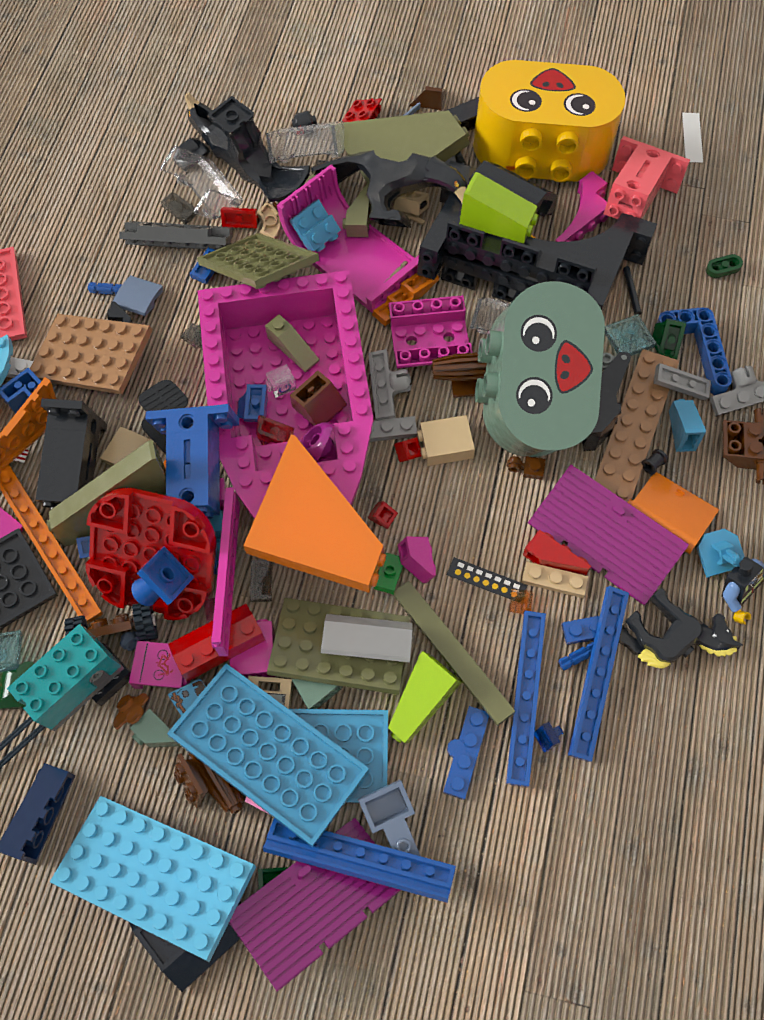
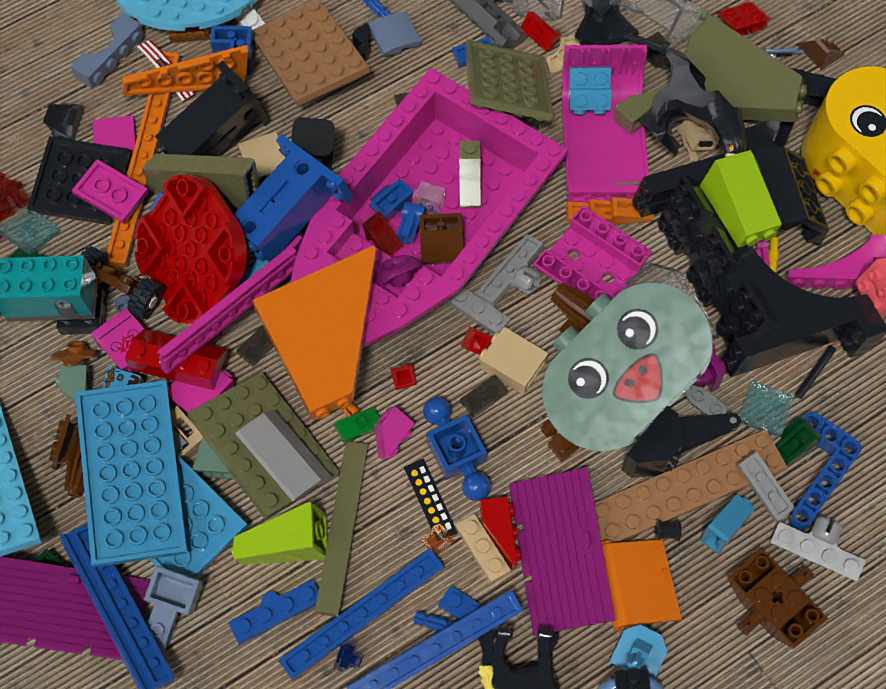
camera: 40 degrees right, 0 degrees up
(37, 569) = (110, 191): none -> dark pink plate
(160, 578) = (178, 274): blue plant -> none
(281, 404) = (410, 222): none -> blue piece
(451, 480) = (484, 396): none -> clear smoke plate
(472, 540) = (456, 461): none -> blue brick

